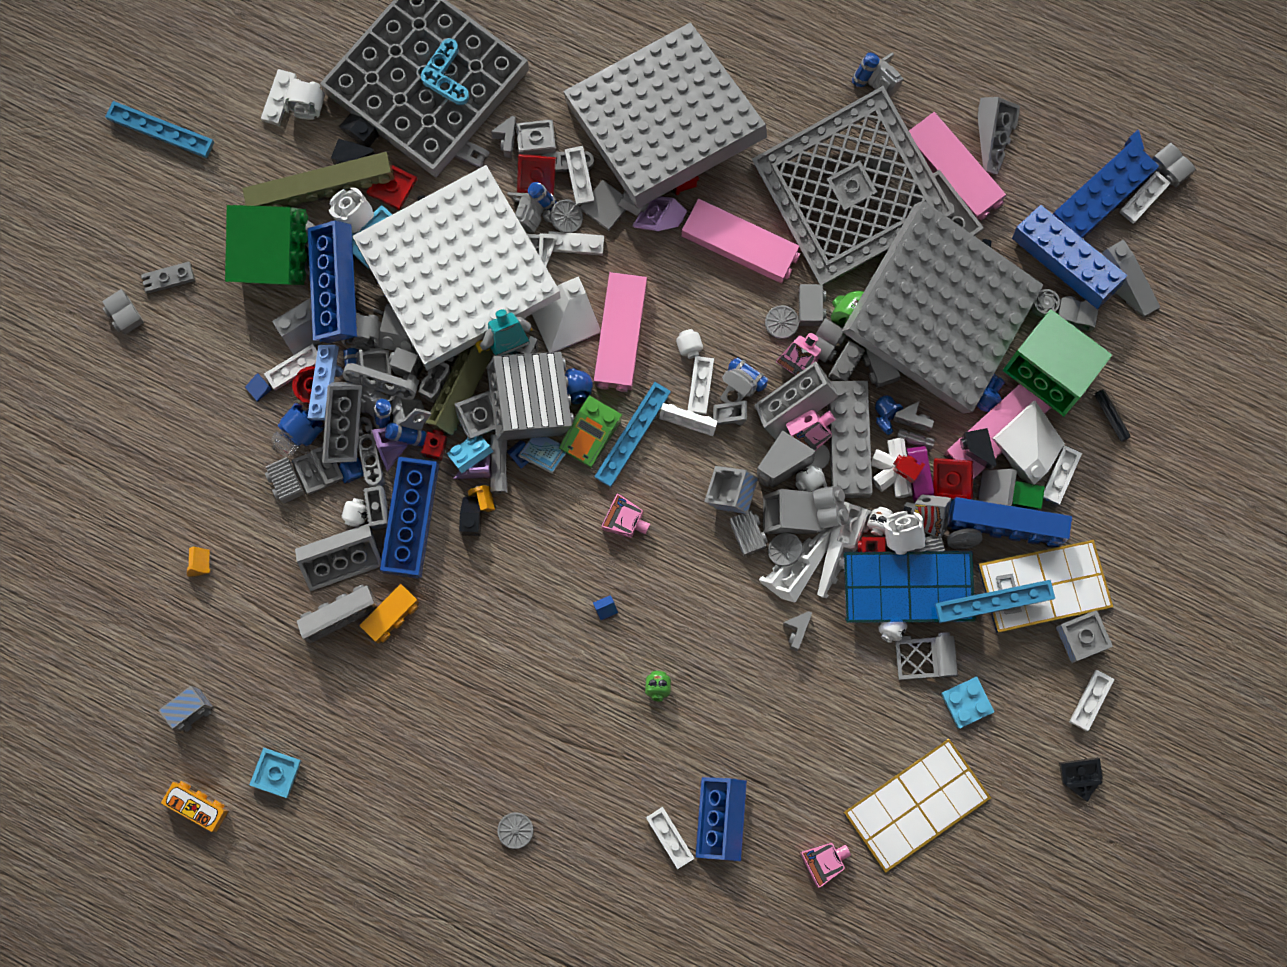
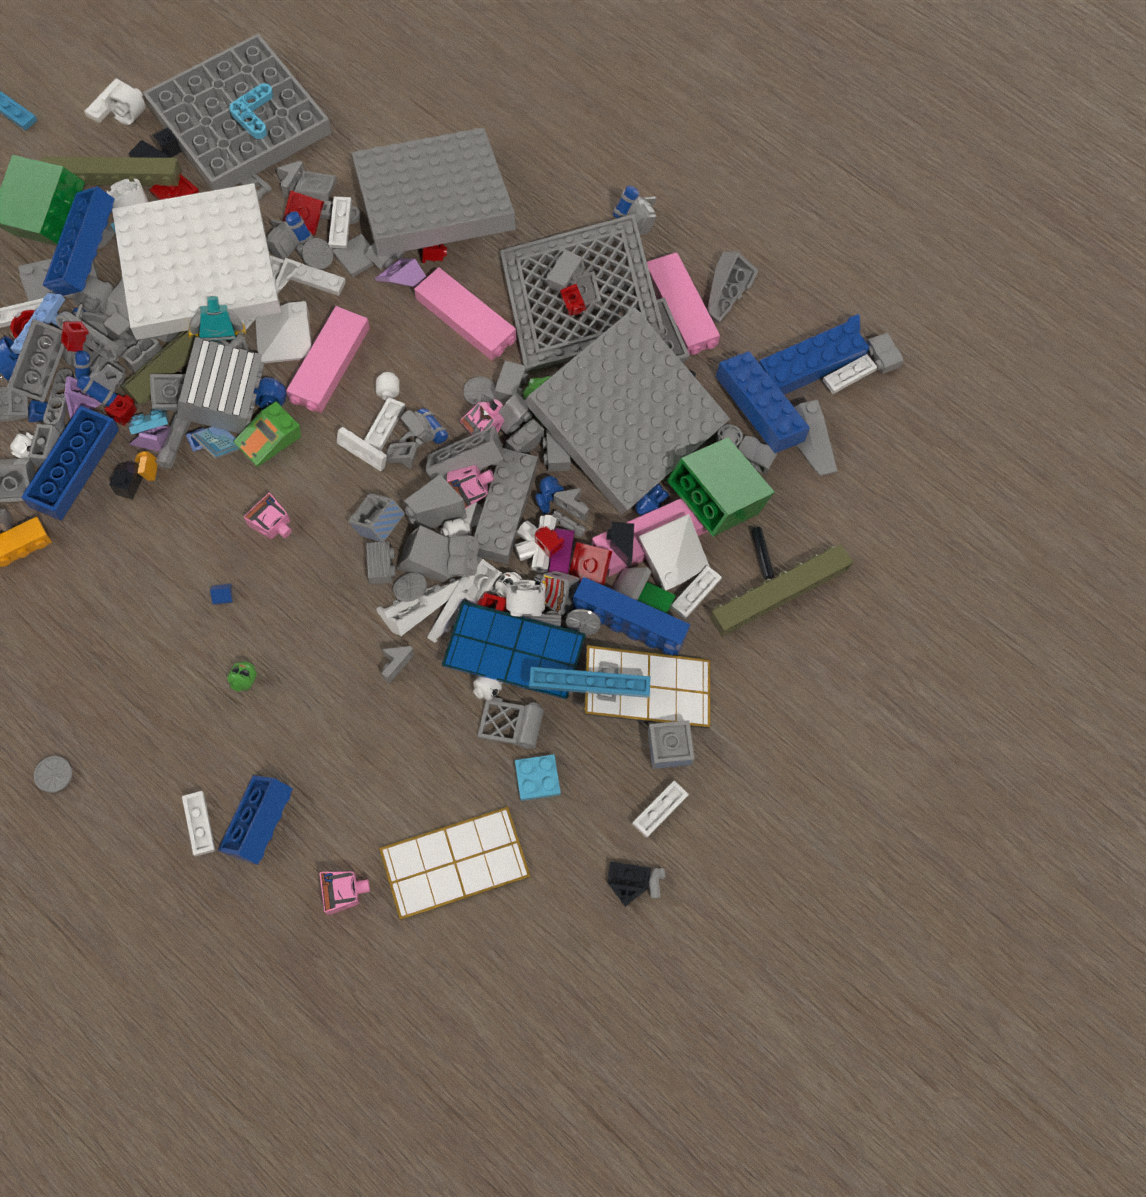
camera: 10 degrees right, 10 degrees down
(370, 388) = (74, 335): none -> red brick
(632, 434) = (304, 449): dark azure plate -> none
(832, 171) = (565, 272): none -> light grey brick
(850, 208) = (573, 300): none -> red brick
(1106, 763) = (654, 886): none -> light grey arm
(1145, 446) = (780, 590): none -> olive brick

